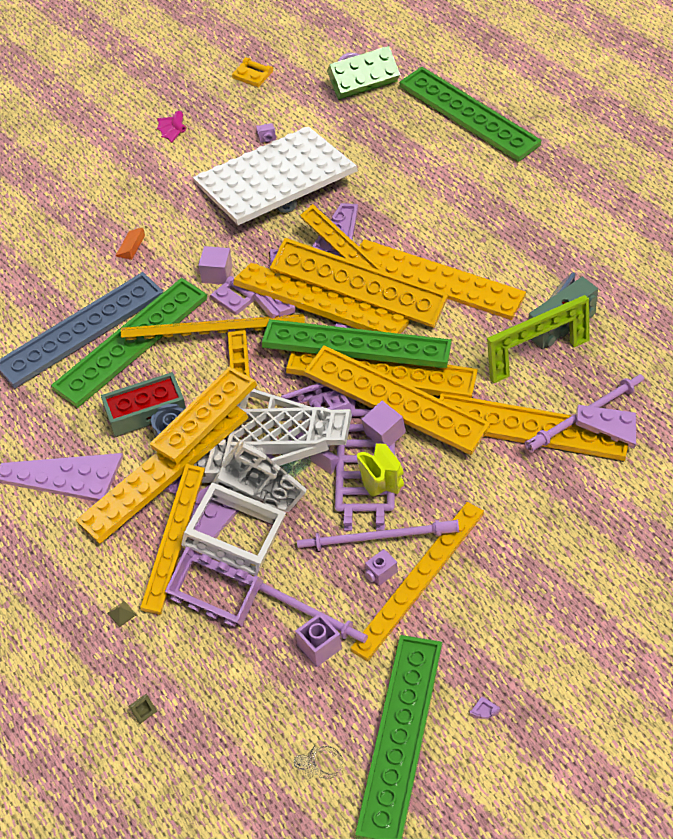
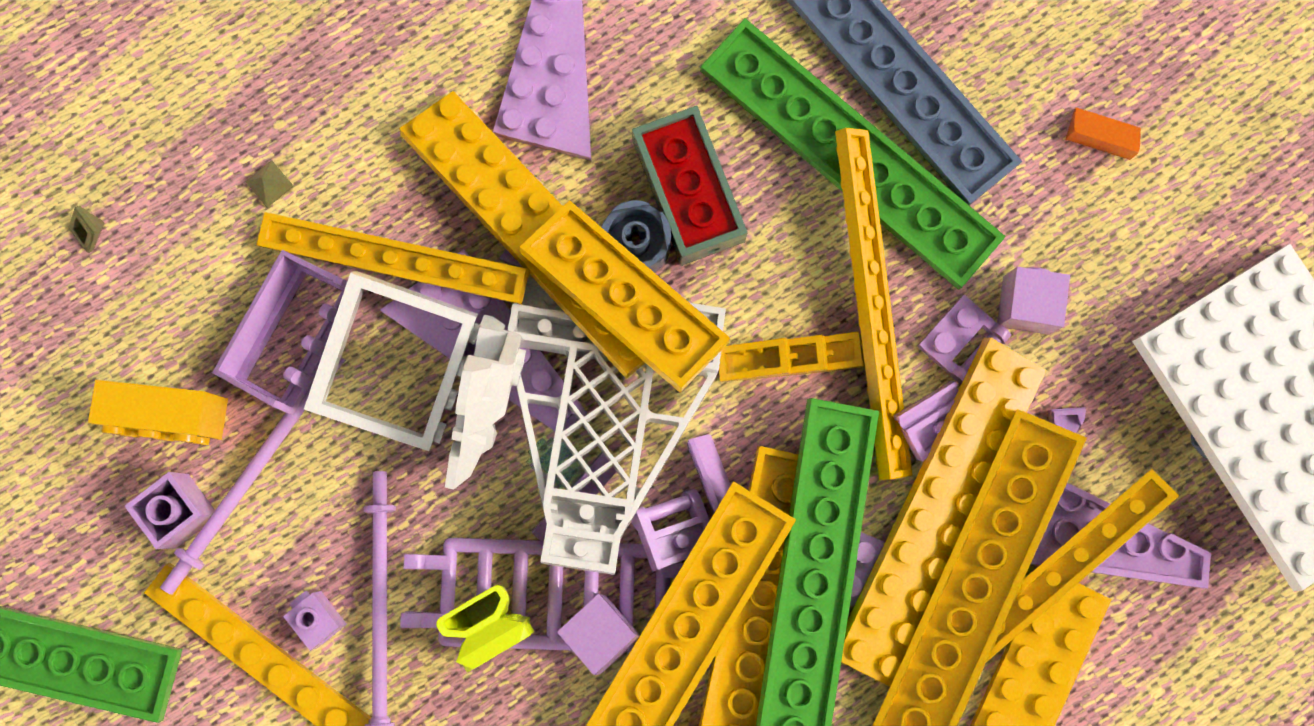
camera: 85 degrees right, 30 degrees up
(259, 646) = (157, 412): none -> yellow brick

